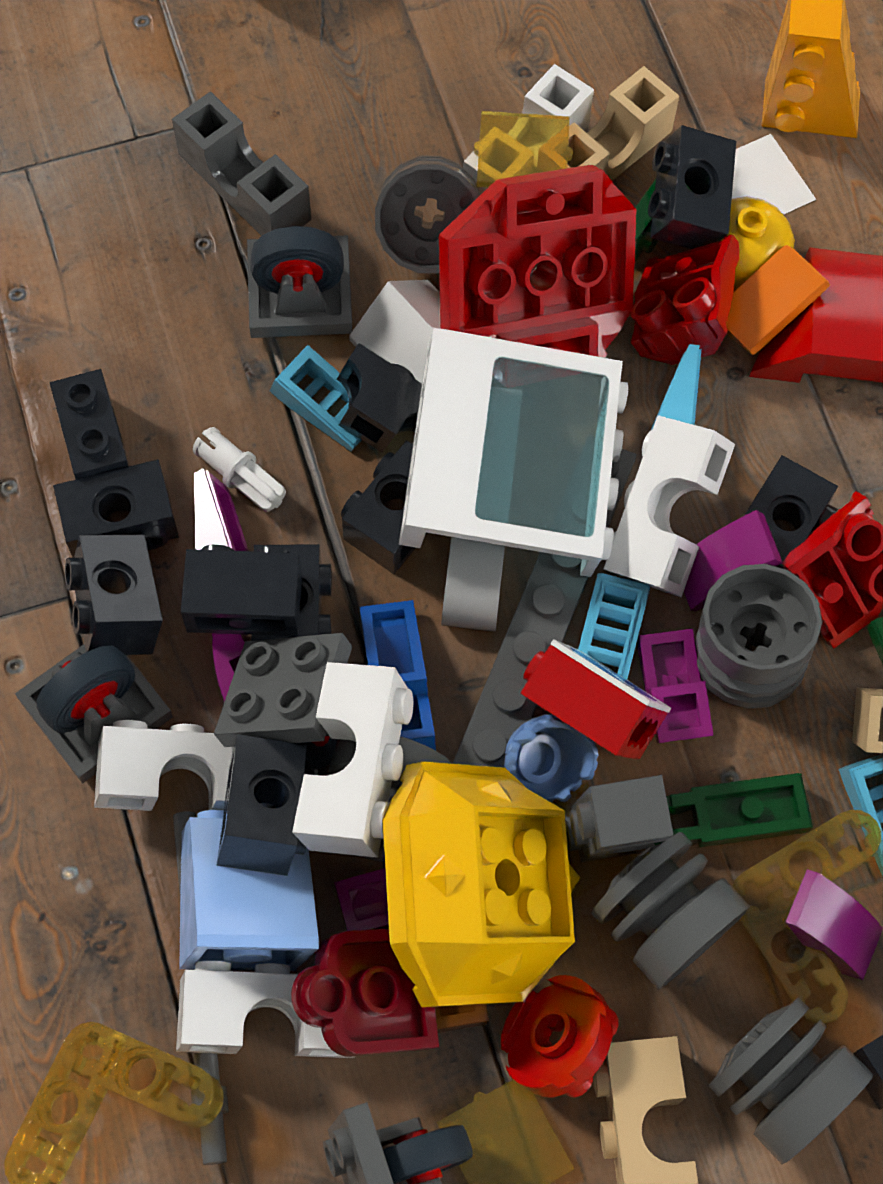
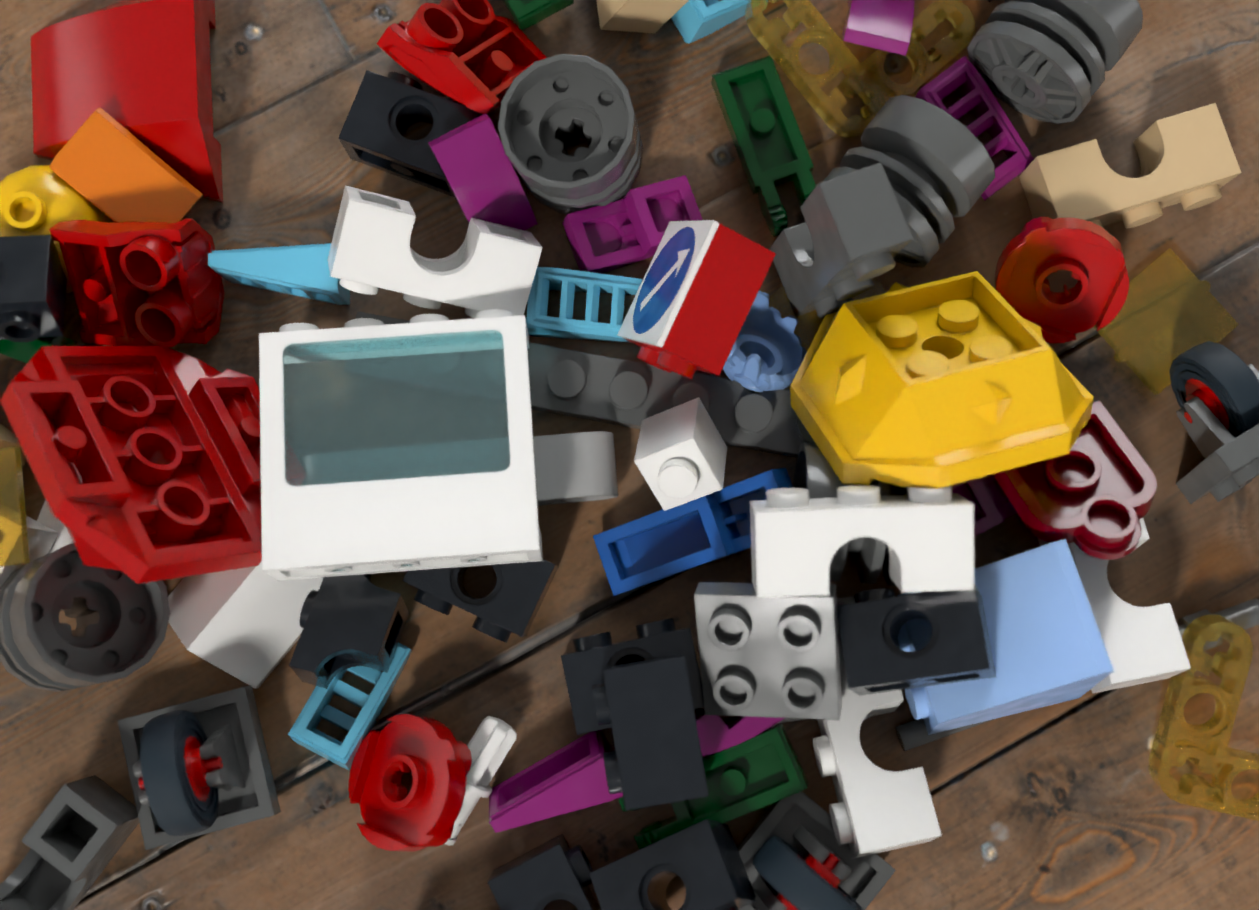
camera: 100 degrees left, 15 degrees up
(185, 666) = (737, 784): none -> dark green hinge
(248, 422) = (437, 790): none -> red plate
(464, 671) = (681, 454): none -> white brick
(763, 980) = (978, 98): none -> magenta slope

